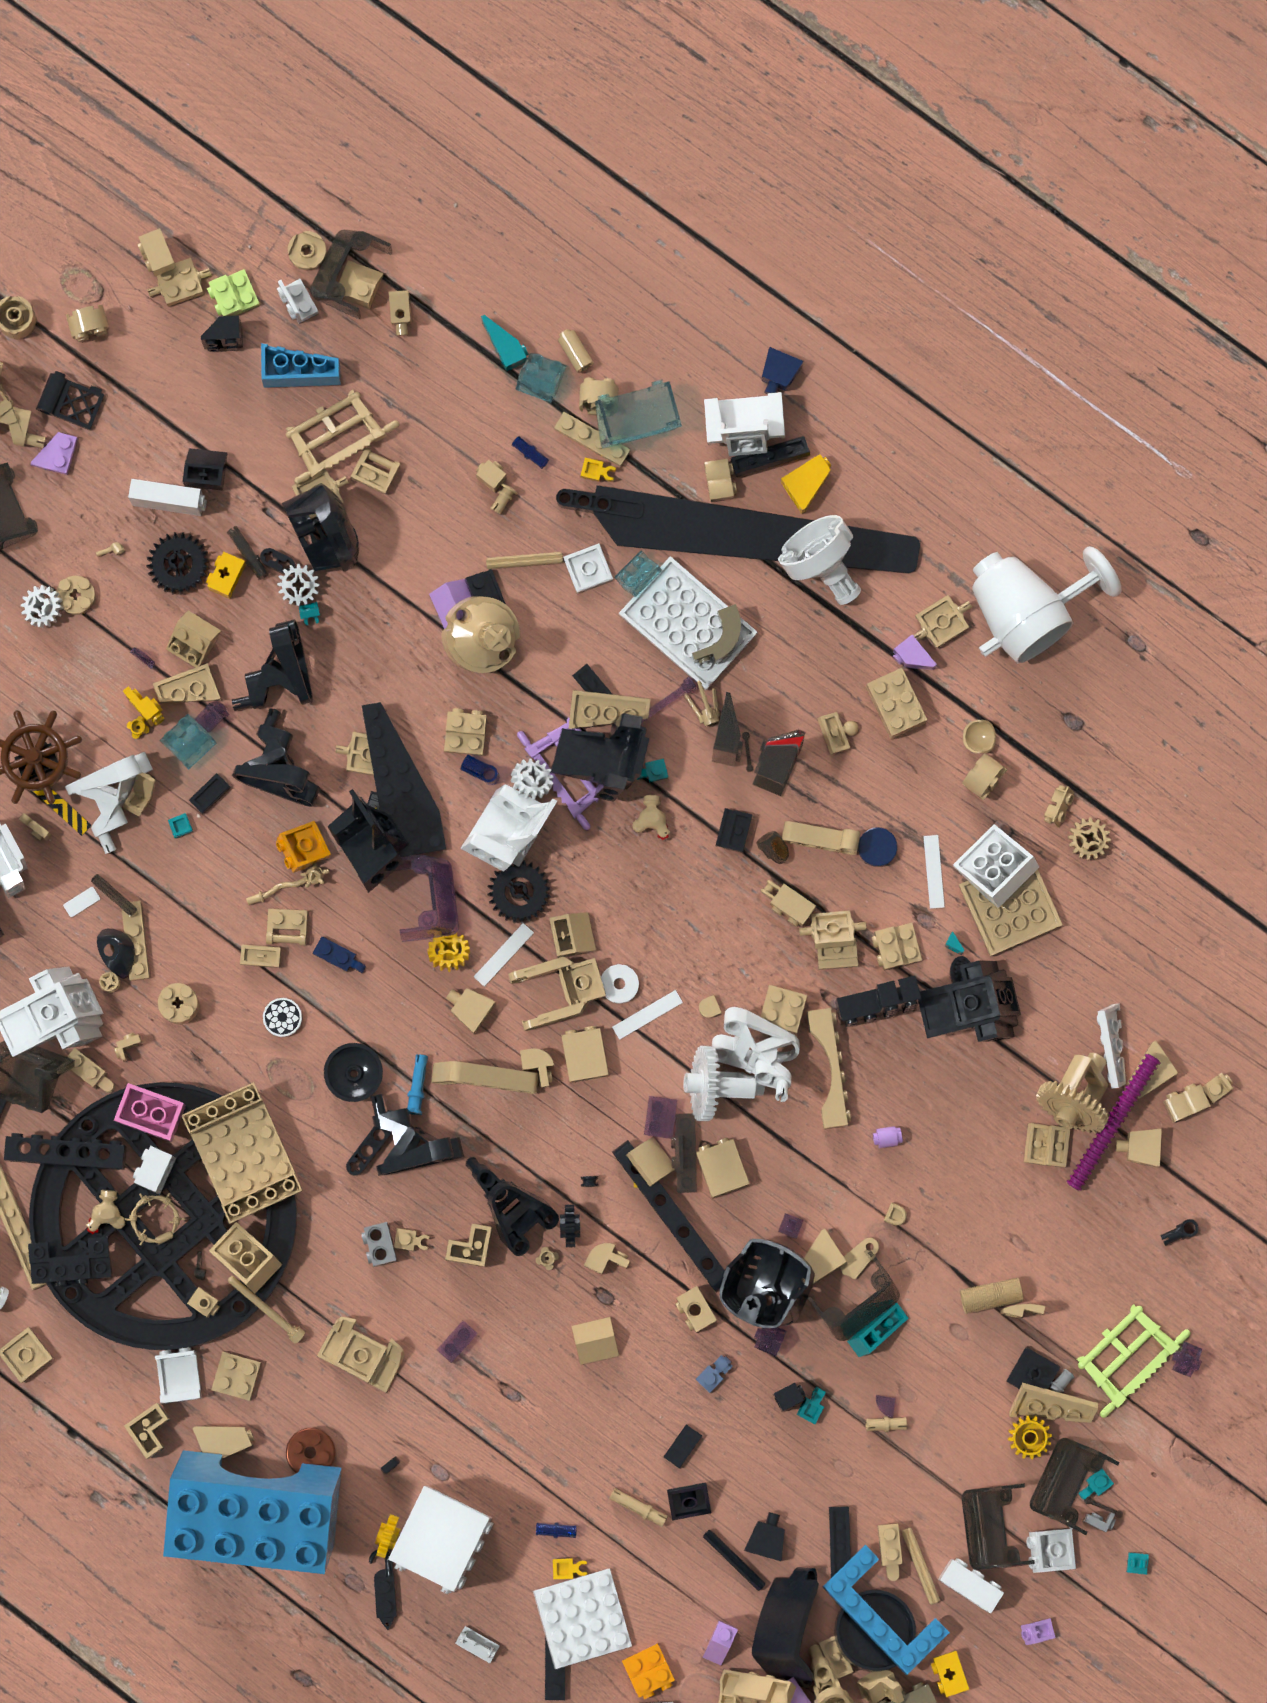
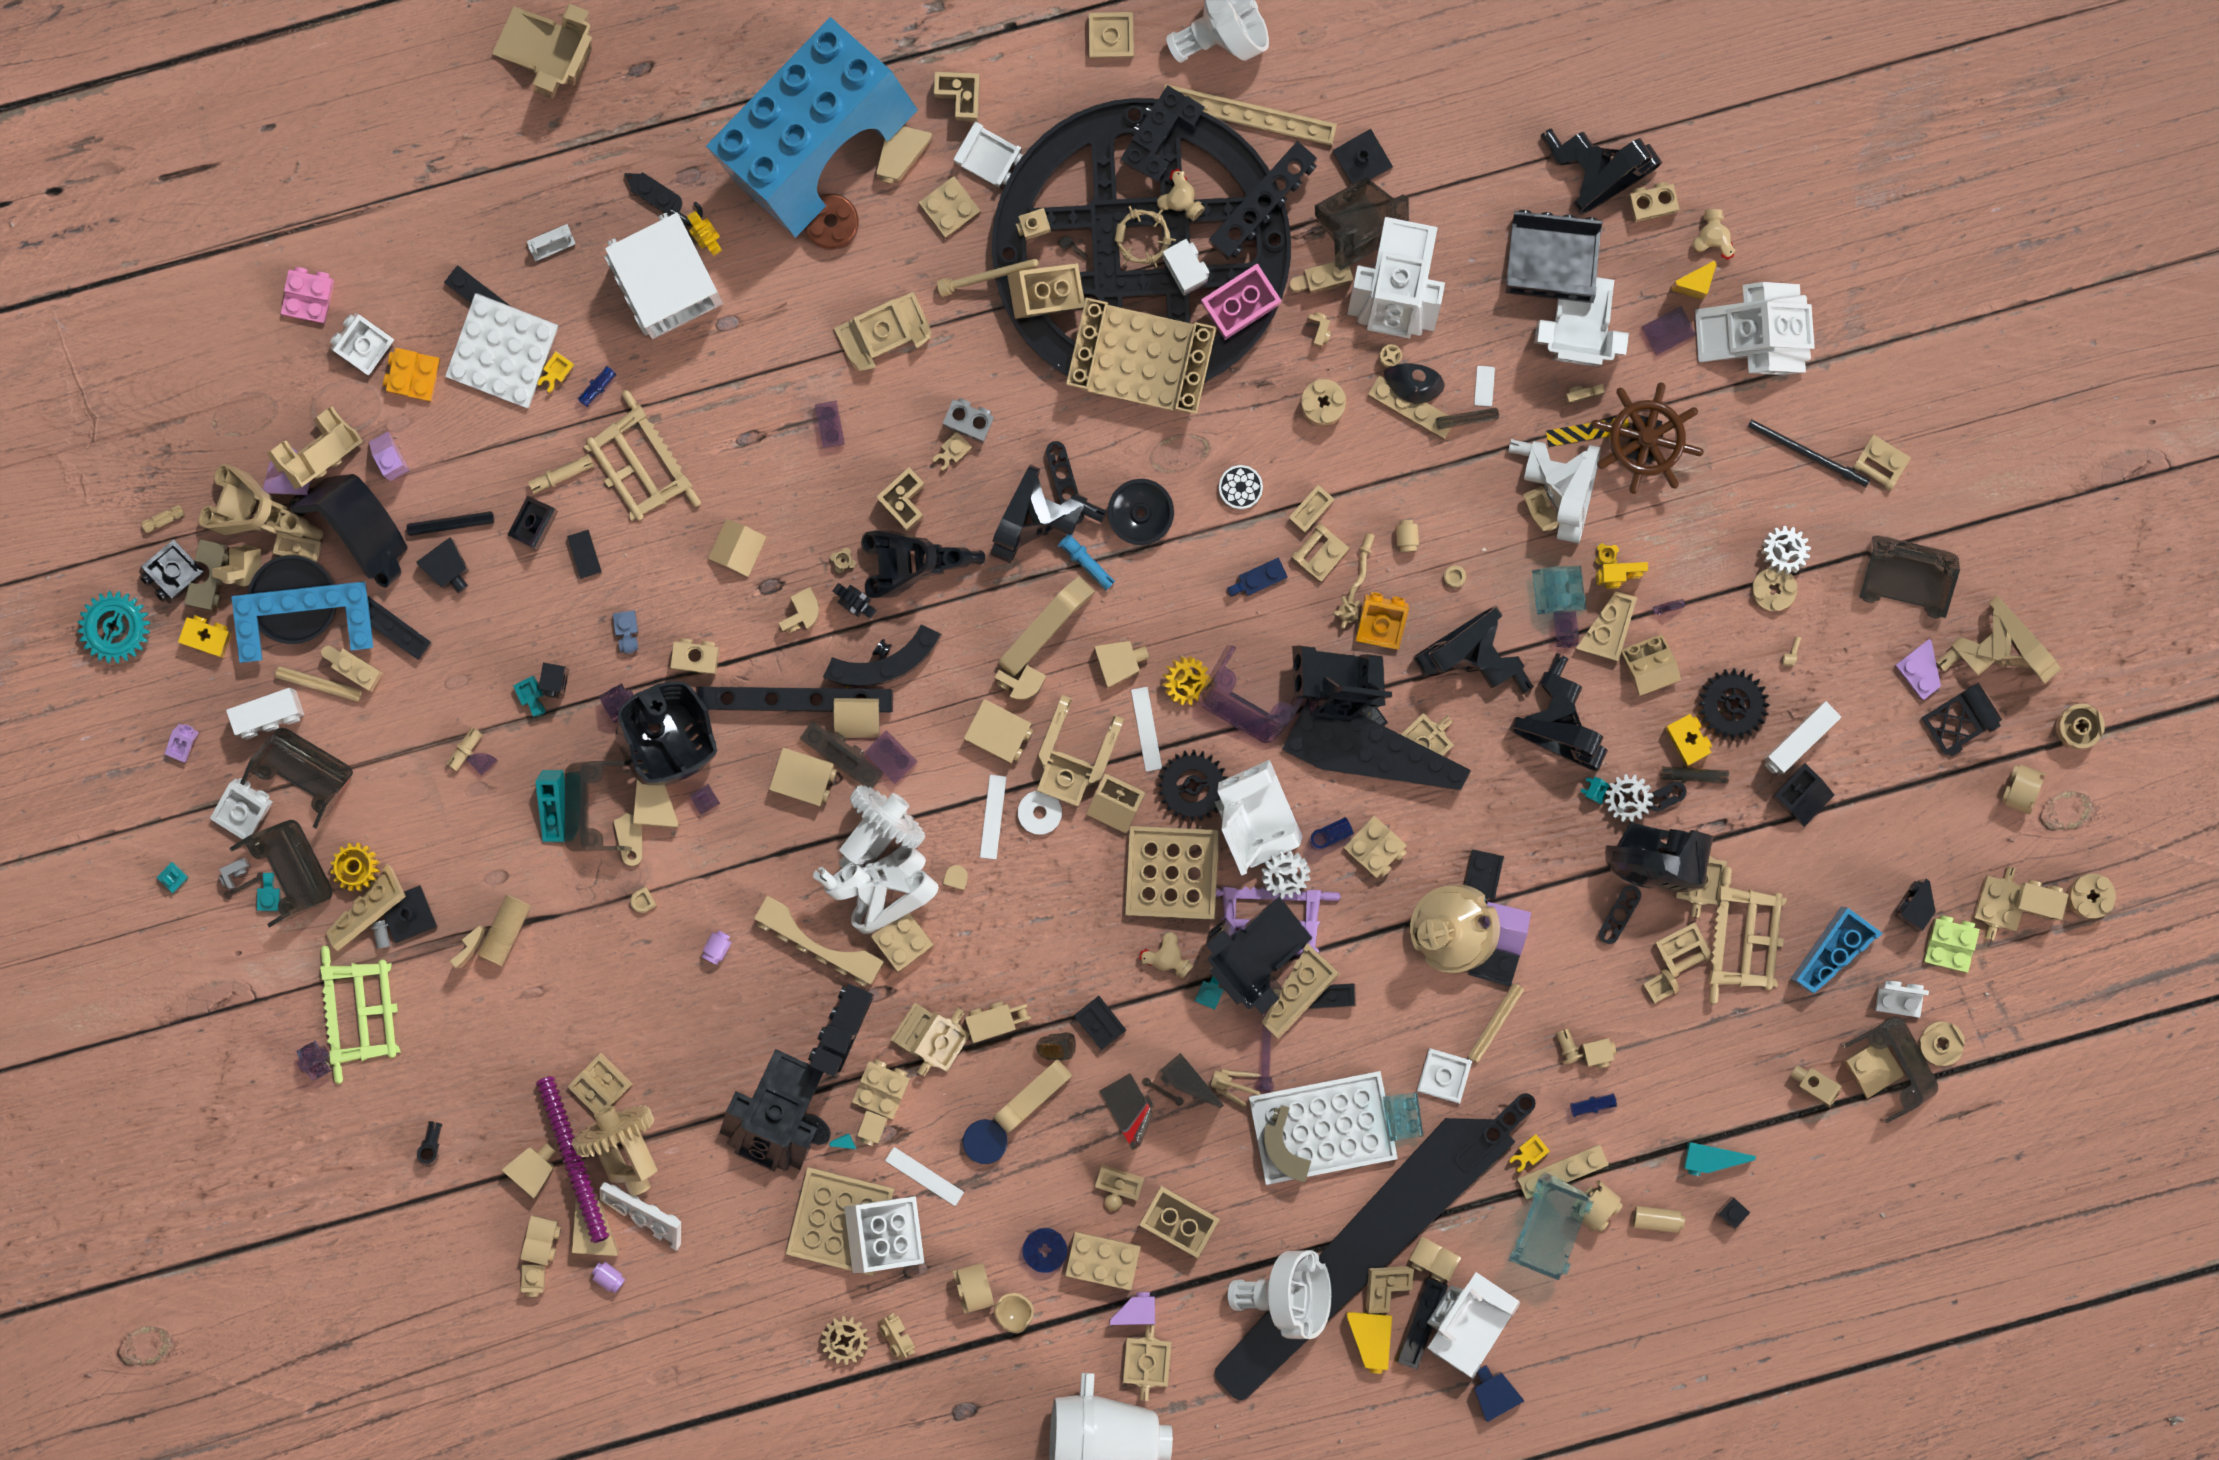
camera: 125 degrees right, 5 degrees up
(125, 214) = (2104, 896): none -> tan brick
(180, 825) = (1486, 526): teal tile -> none
(209, 793) = (1496, 574): black tile -> none
(229, 874) = (1407, 536): none -> tan brick
(233, 821) = (1454, 576): none -> tan tile
(390, 1465) = (766, 283): black tile -> none
(397, 524) = (1617, 932): none -> black beam
(412, 467) = (1661, 986): none -> tan tile
(426, 646) = (1484, 872): none -> black plate
(531, 304) = (1733, 1212): none -> black brick
(540, 377) = (1657, 1168): clear light blue slope -> none
(577, 856) = (1137, 881): none -> tan piece
(600, 1166) = (886, 669): none -> black brick
(612, 1466) = (615, 432): none -> tan piece
(762, 502) = (1382, 1282): none -> tan plate
(829, 671) = (1179, 1221): none -> tan brick
(919, 760) = (1036, 1259): none -> clear blue plate
(928, 932) = (872, 1128): none -> tan brick
(1175, 1036) = (607, 1277): none -> lavender brick

